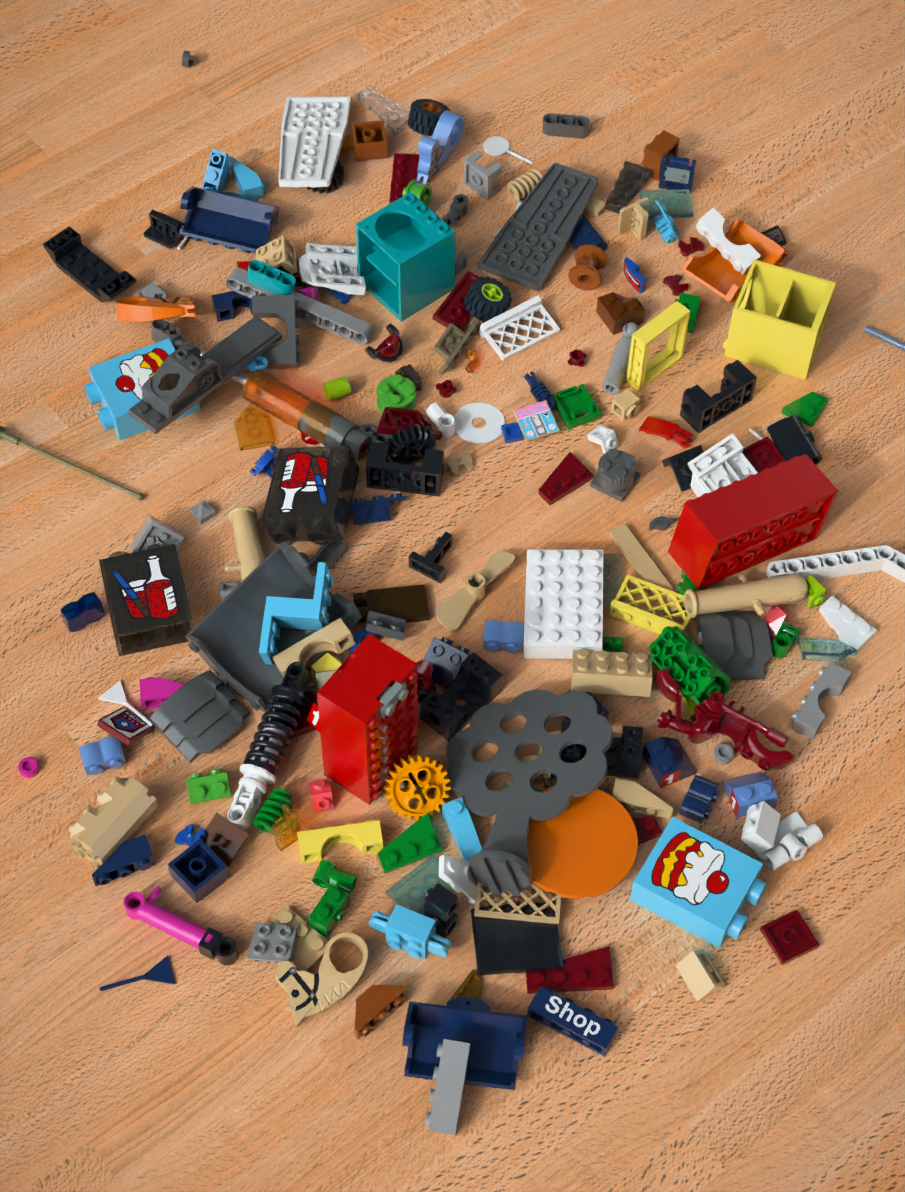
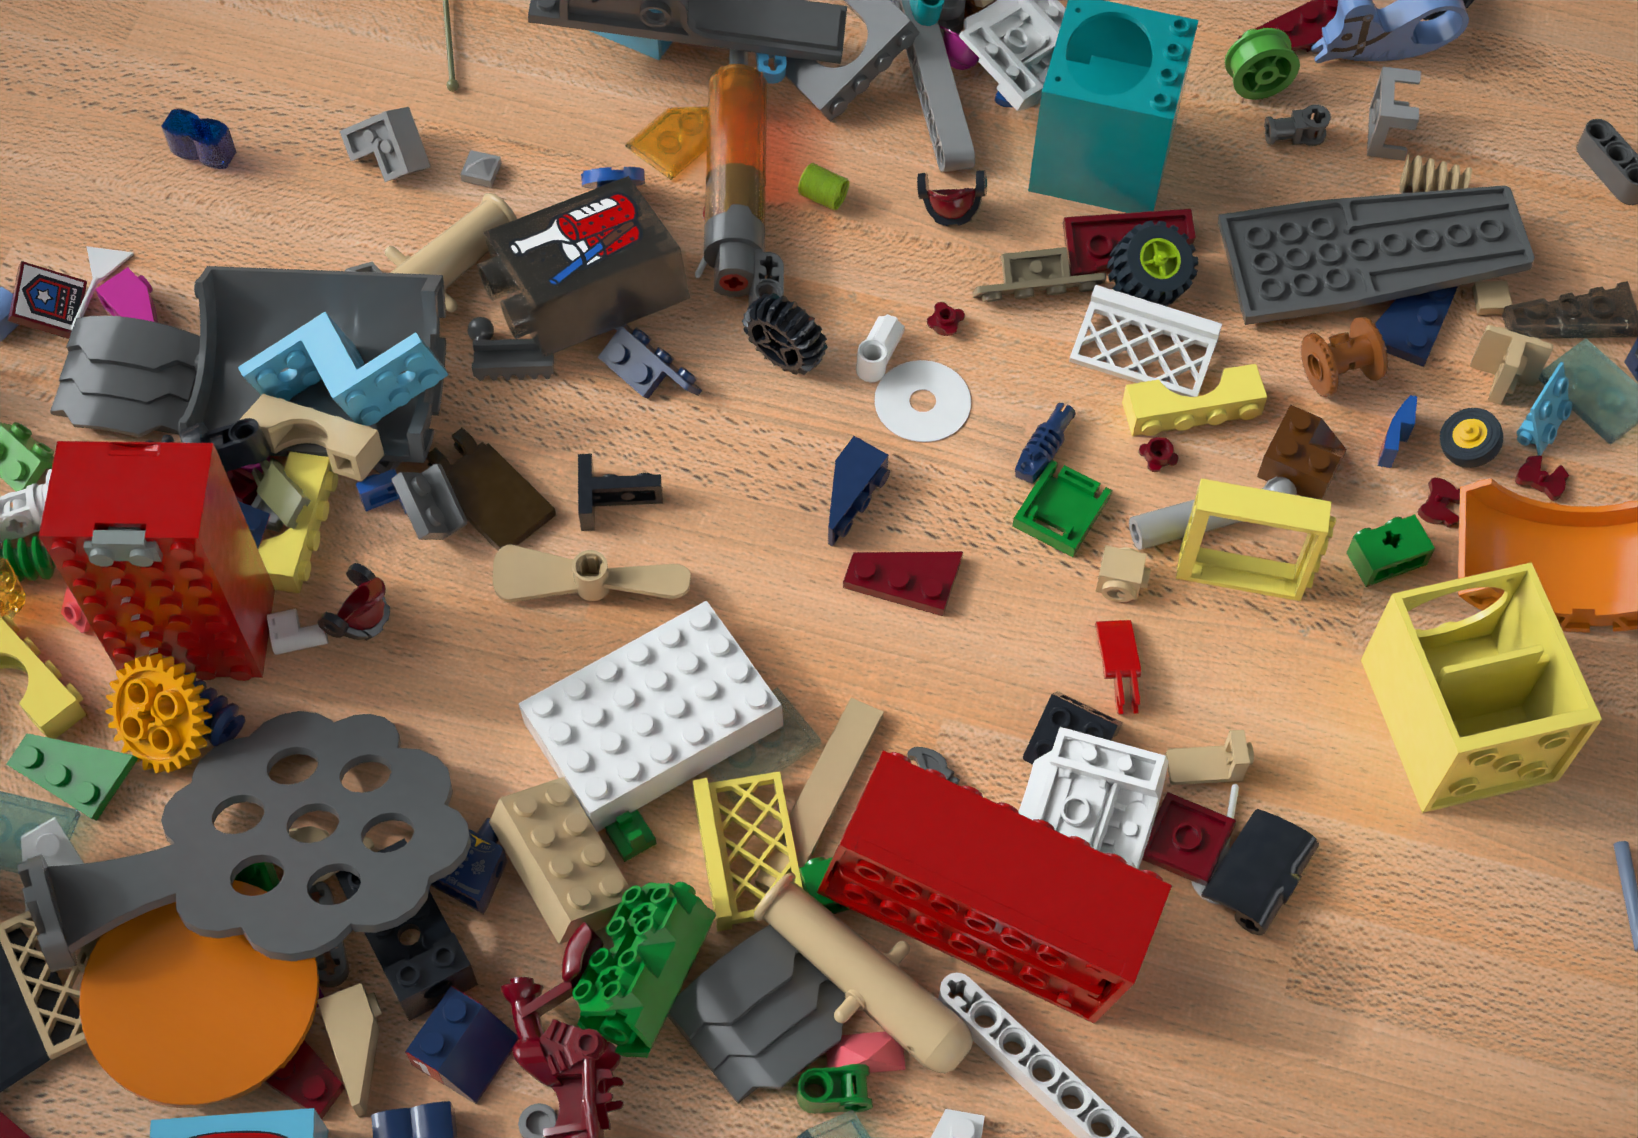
camera: 55 degrees right, 5 degrees up
(146, 598) = (269, 189): clear smoke brick -> none
(390, 475) = (751, 391): black plate -> none
(396, 393) = (872, 265): bright green wheel -> none
(396, 418) = (830, 301): dark red wing -> none
(410, 373) = (924, 259): clear smoke bracket -> none
(445, 660) = (434, 615): dark blue bracket -> none
(453, 463) = (831, 424): tan piece -> none
(460, 262) = (1199, 191): light grey tile -> none
(461, 828) = (139, 818): medium azure slope -> none
(474, 359) = (1033, 321): clear orange arm -> none
(477, 686) = (336, 679): black plate -> none
(499, 146) = (1487, 104): white piece -> none
(502, 468) = (856, 476): none -> dark blue slope
(503, 636) = (529, 663): medium blue brick -> none
(511, 432) = (936, 453): blue tile -> none
(536, 421) = (980, 470): piece -> none
(555, 344) = (1156, 409): none -> light yellow arch
(604, 437) = (1027, 584): white bracket -> none
(615, 474) = (964, 640): dark grey piece -> none
(657, 254) = (1471, 437): none -> black wheel
(736, 390) = (1226, 707): black plate -> none
(739, 255) = (1578, 559): white arch -> none
(739, 423) = (1211, 763): none -> tan bracket
(806, 408) = (1357, 849): green wing -> none
(815, 592) = (969, 1075): lime bracket -> none

